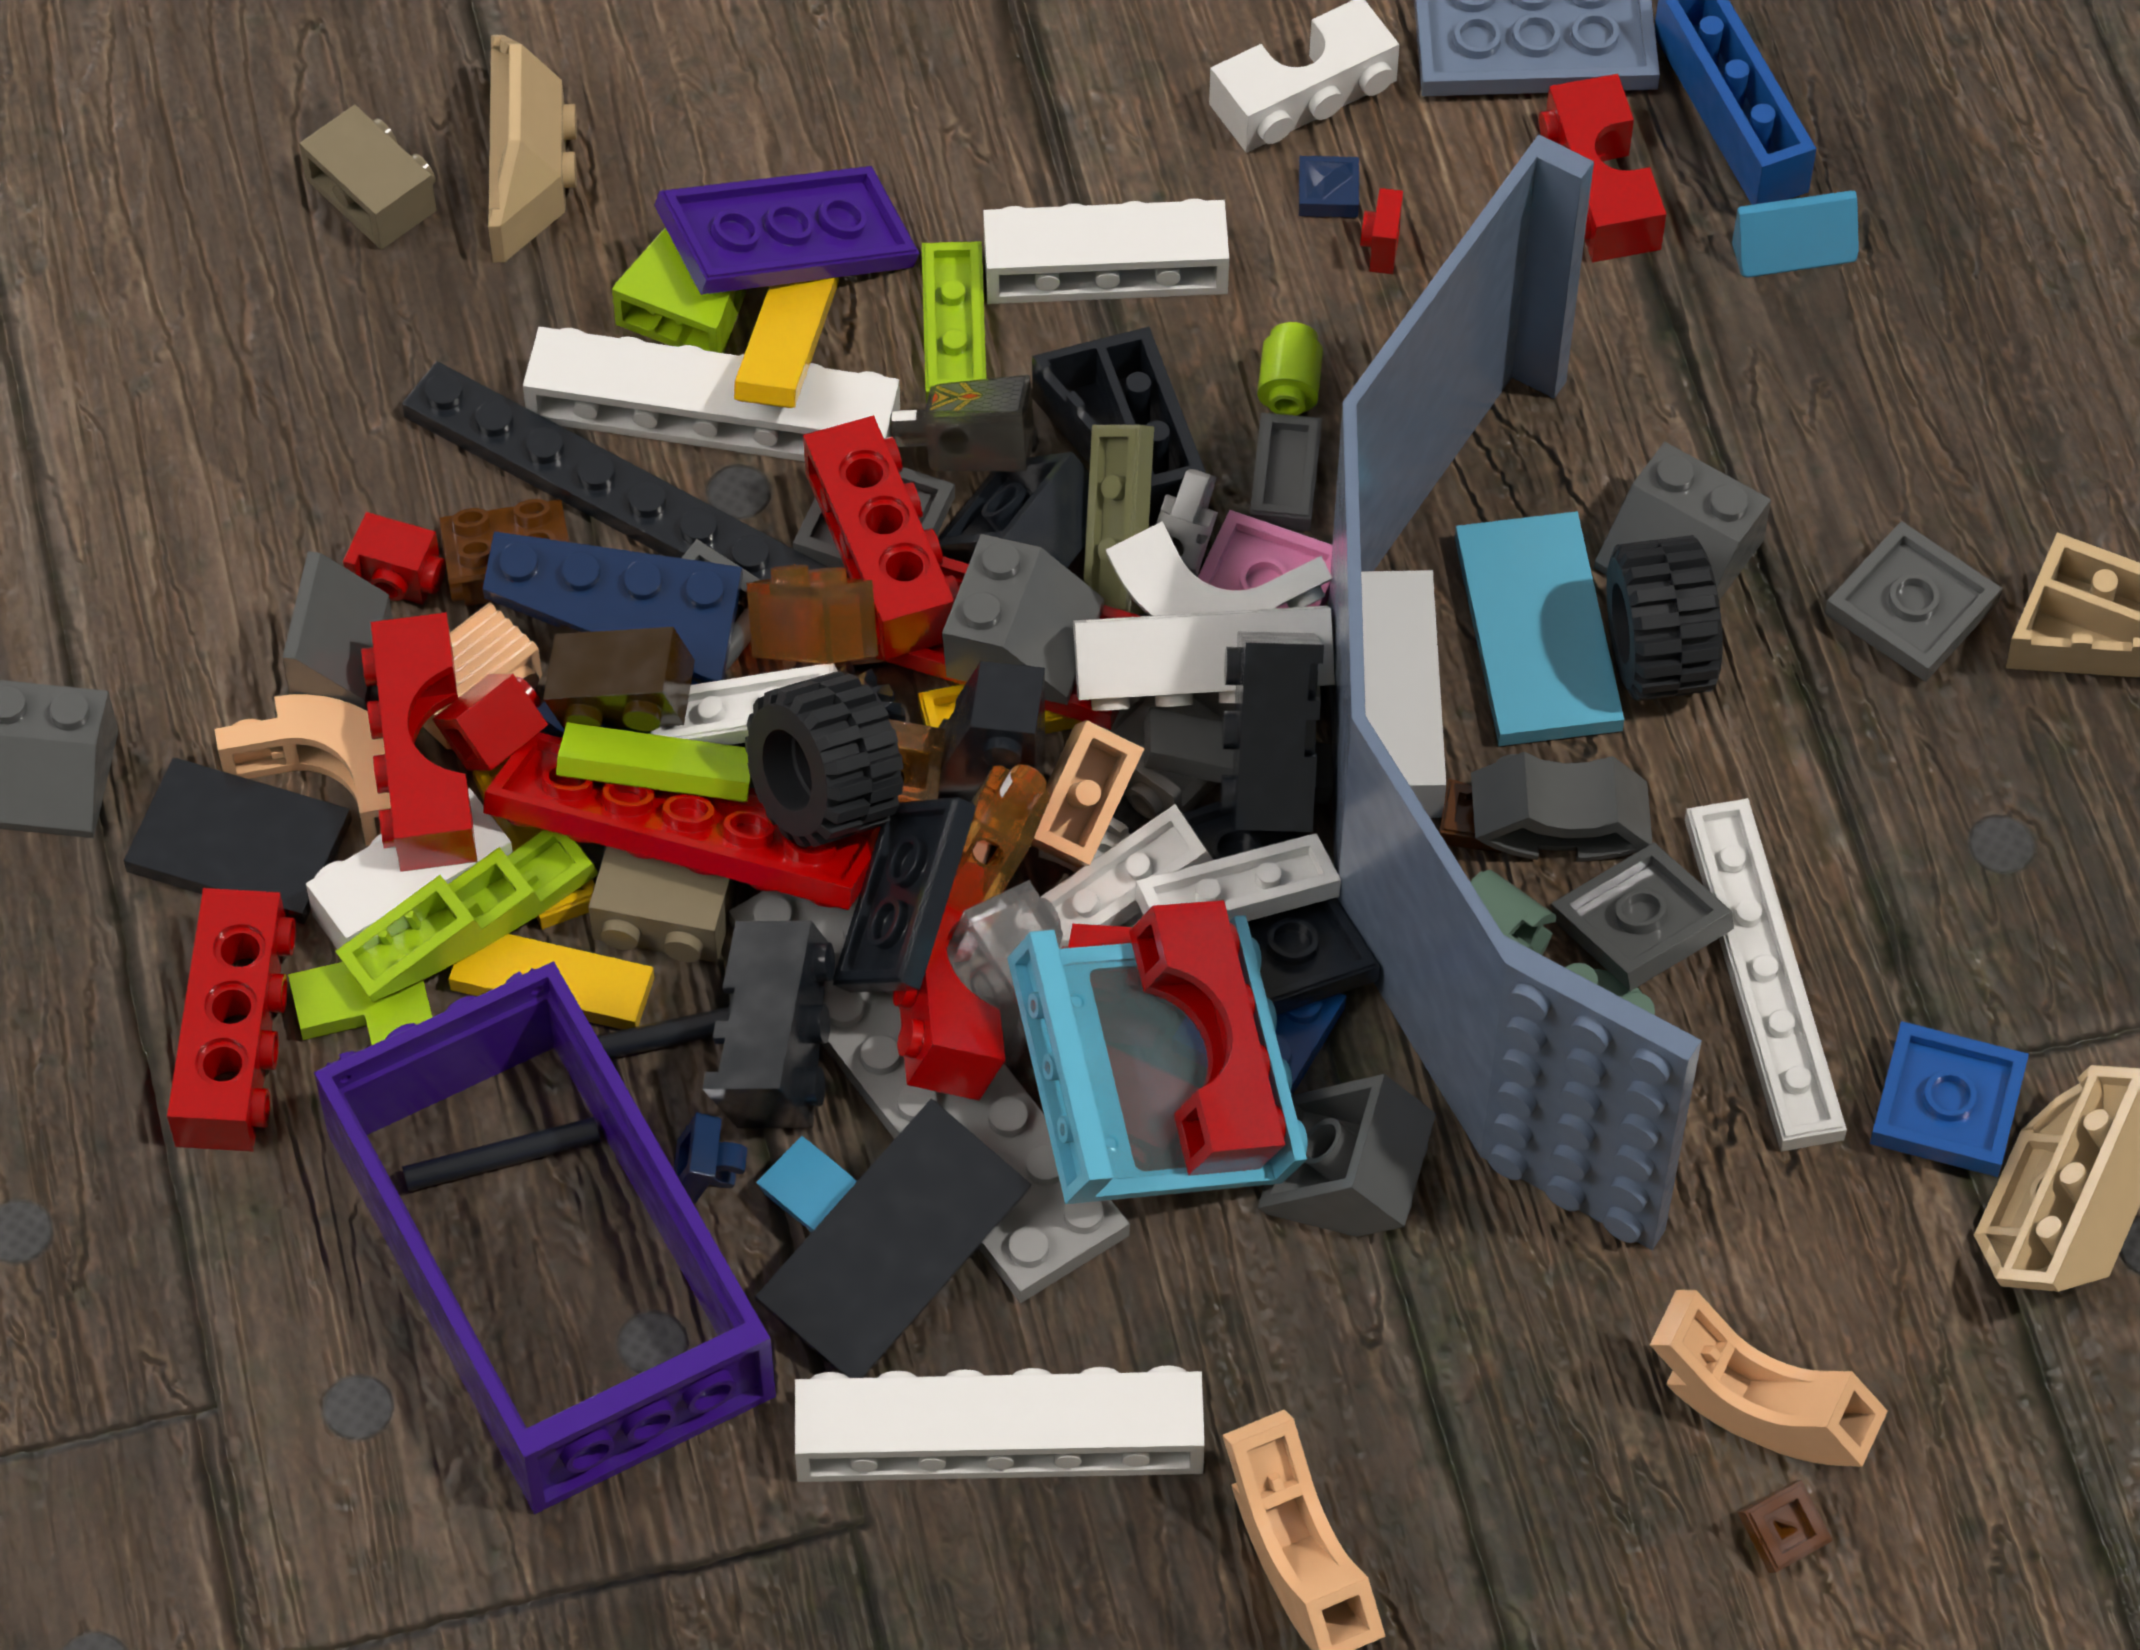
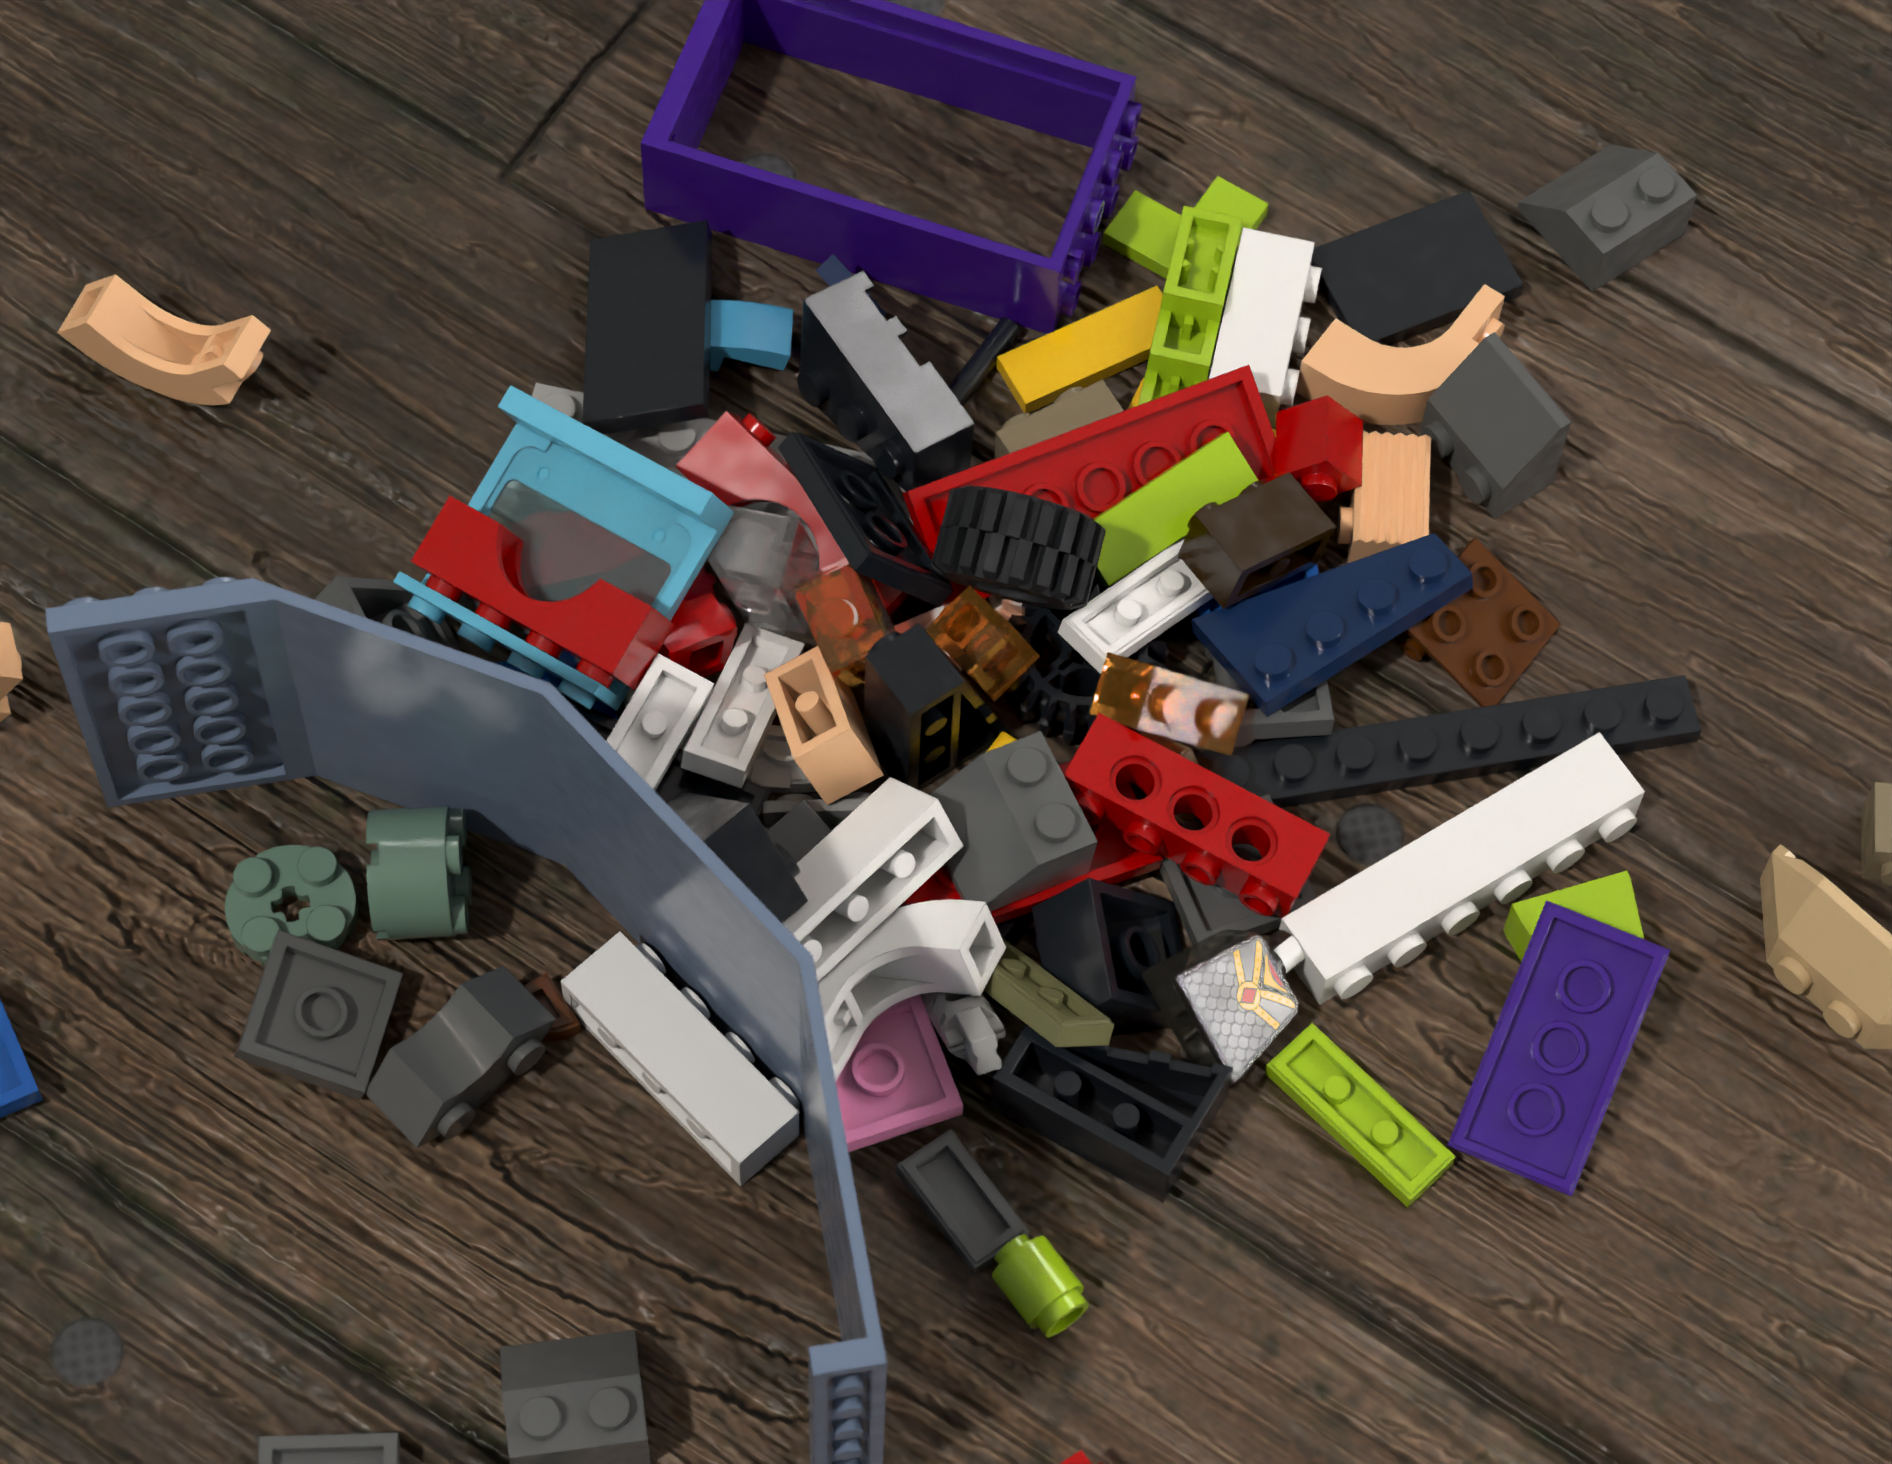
camera: 135 degrees right, 5 degrees up
(230, 929) = (1264, 110): red brick -> none
(396, 558) = (1543, 542): red brick -> none
(429, 804) = (1286, 333): red arch -> none
(501, 1154) = (1009, 188): black bar -> none
(784, 342) = (1443, 929): yellow tile -> none
(999, 1425) = (459, 281): white brick -> none
(1106, 251) = (1298, 1270): white brick -> none
(1538, 629) = (628, 1227): medium azure tile -> none
(1664, 617) = (505, 1262): black tyre -> none
(1766, 977) = (194, 1070): white tile -> none

